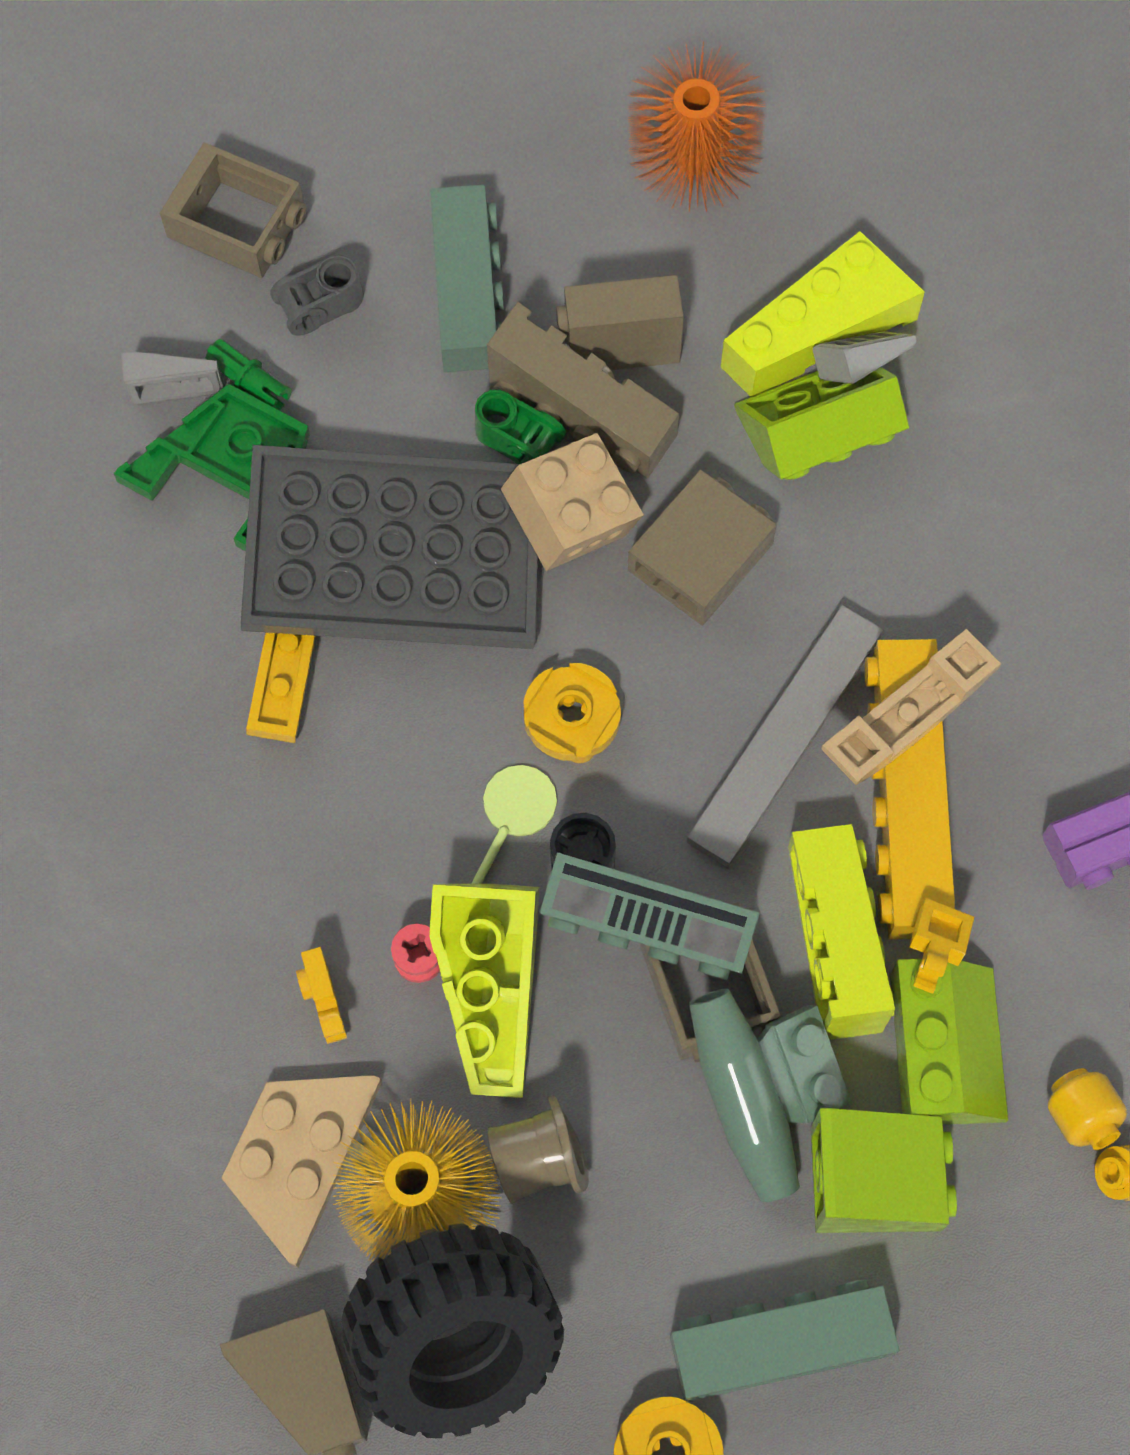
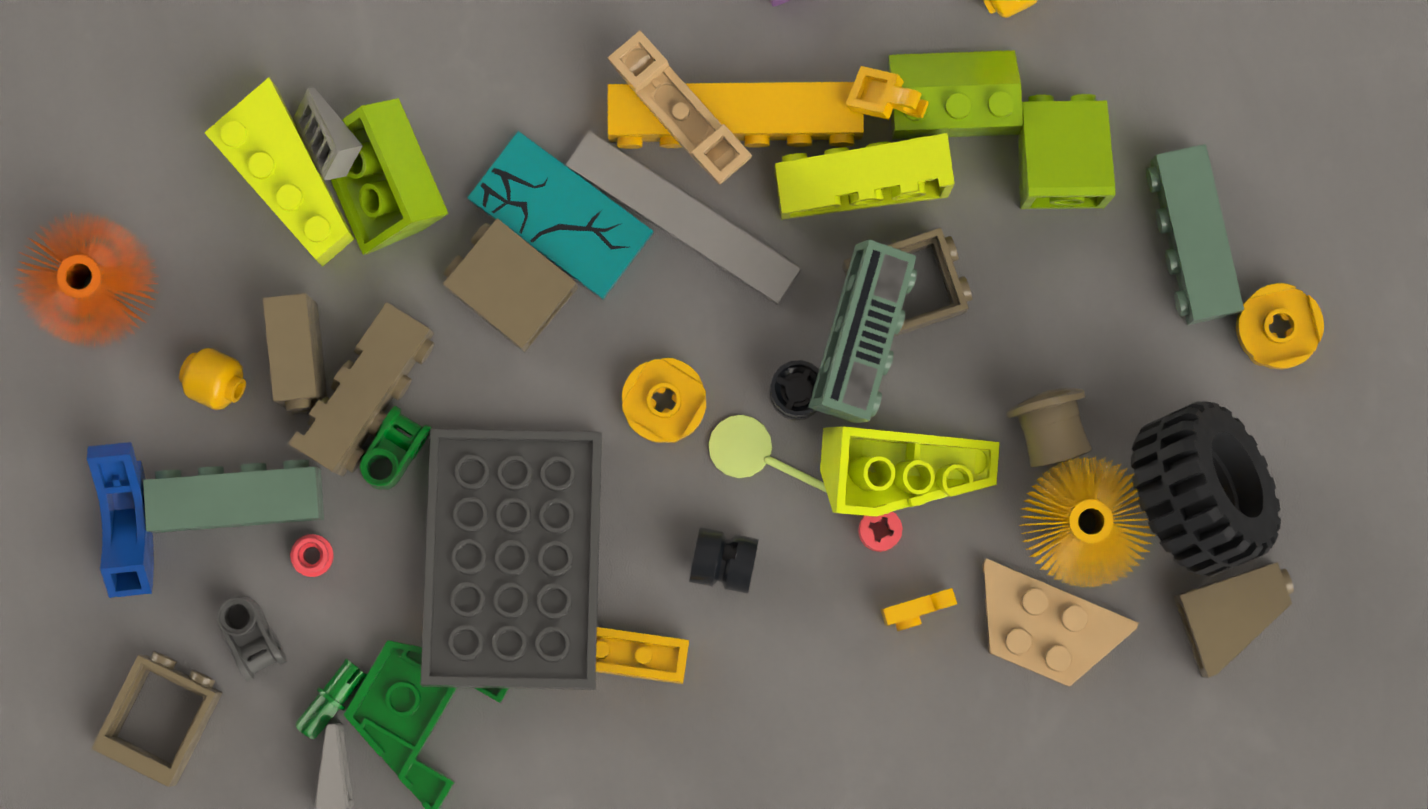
camera: 90 degrees left, 15 degrees up
(383, 780) = (723, 560): none -> black wheel
(400, 345) = (299, 550): none -> coral plate
(403, 175) = (126, 544): none -> blue arch
(571, 501) = (473, 398): tan piece -> none
(594, 253) = (212, 378): none -> yellow head
(765, 1084) = (995, 241): sand green plate -> none
(783, 604) = (561, 215): none -> teal tile

